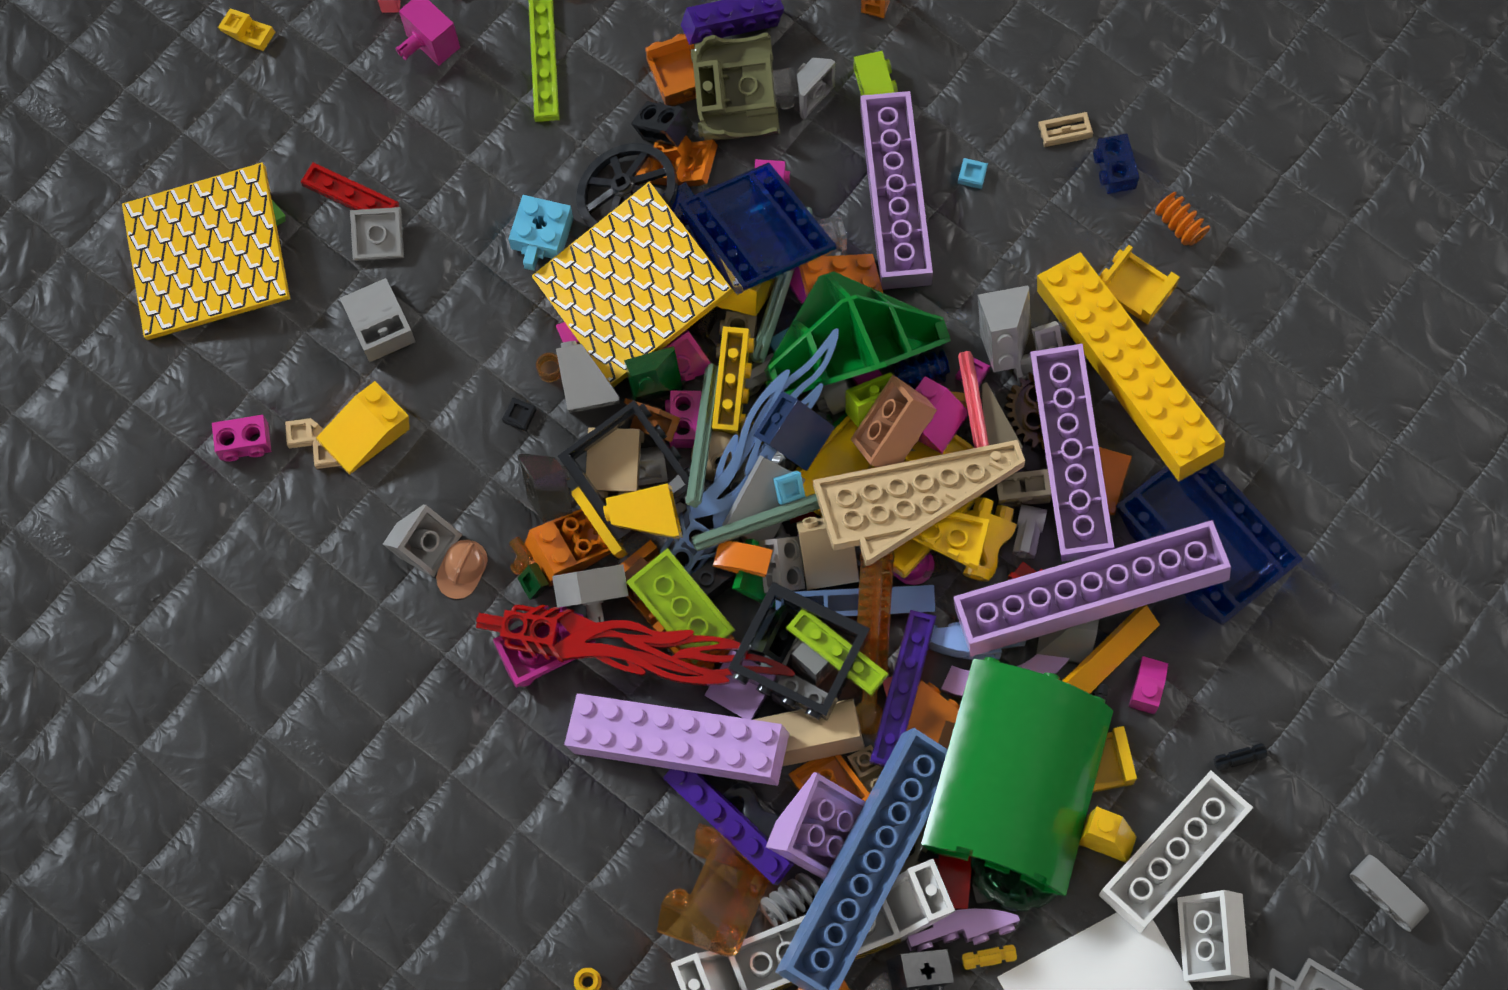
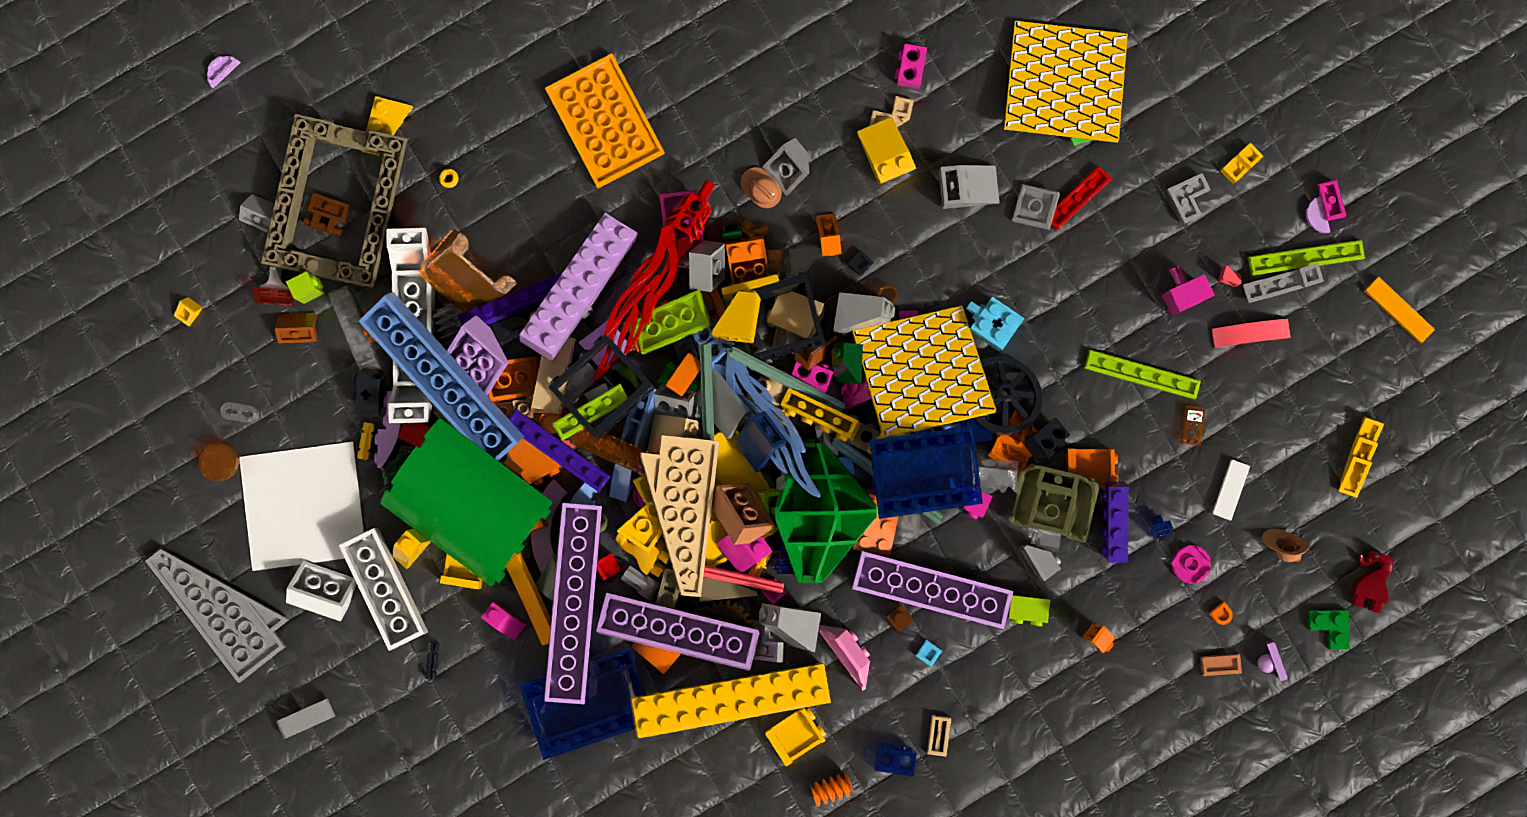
camera: 110 degrees right, 15 degrees up
(308, 77) = (1183, 197): none -> light grey plate
(438, 799) = (605, 120): none -> light orange plate
(494, 461) = (828, 234): none -> orange slope
(724, 157) = (999, 473): none -> clear piece
(789, 487) = (723, 424): medium azure tile -> none
(944, 215) = (899, 618): none -> reddish brown brick
(1013, 255) = (848, 651): none -> bright pink wedge

